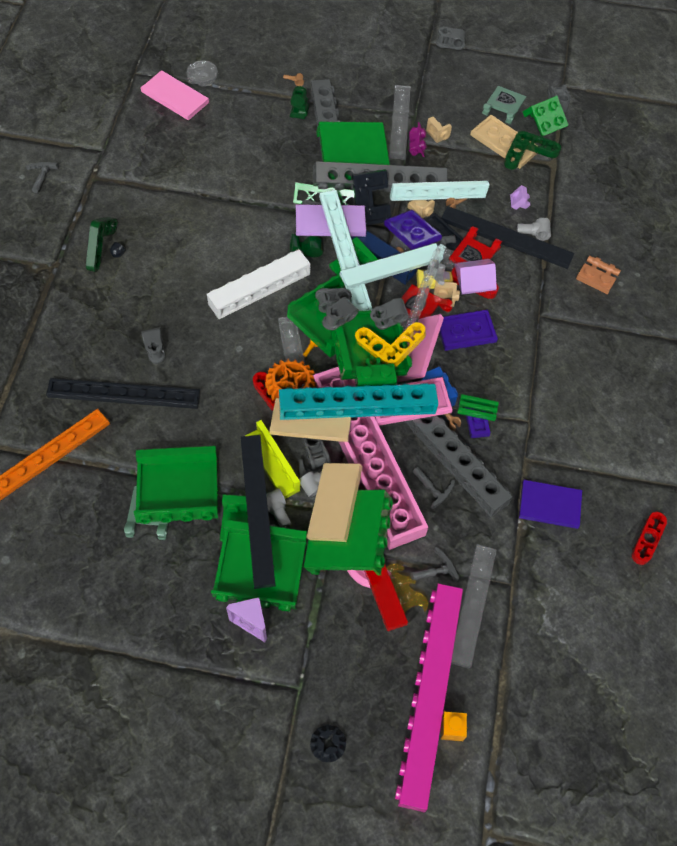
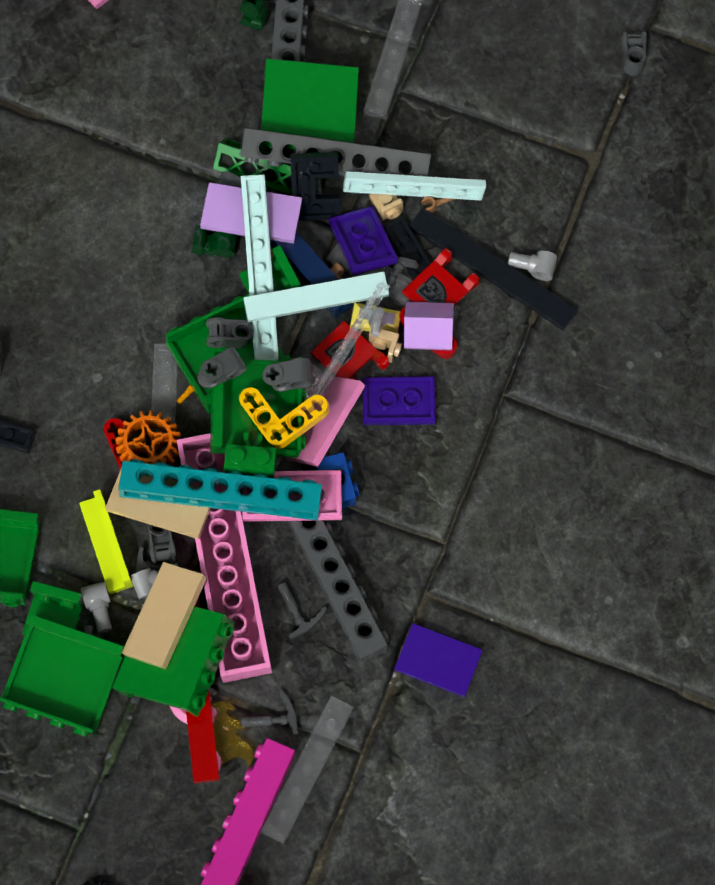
camera: 15 degrees right, 10 degrees up
(249, 617) = (38, 736): lavender slope -> none
(257, 512) = (69, 609): black tile -> none
(258, 284) = (140, 289): white brick -> none
(417, 142) = (411, 85): magenta hinge -> none
(436, 130) = (440, 83): tan bracket -> none
(457, 420) = (342, 523): medium nougat hand -> none
(477, 426) = (376, 530): dark purple plate -> none
(478, 404) = (383, 509): green tile -> none
(499, 138) = (535, 112): tan tile -> none
(504, 101) = (555, 44): sand green flag -> none
(520, 198) = (525, 211): lavender tile -> none
(525, 145) = (556, 126): dark green beam -> none
(547, 115) = (606, 80): green bracket -> none
(595, 278) = (597, 352): nougat plate -> none
(656, 533) = (531, 736): red beam -> none

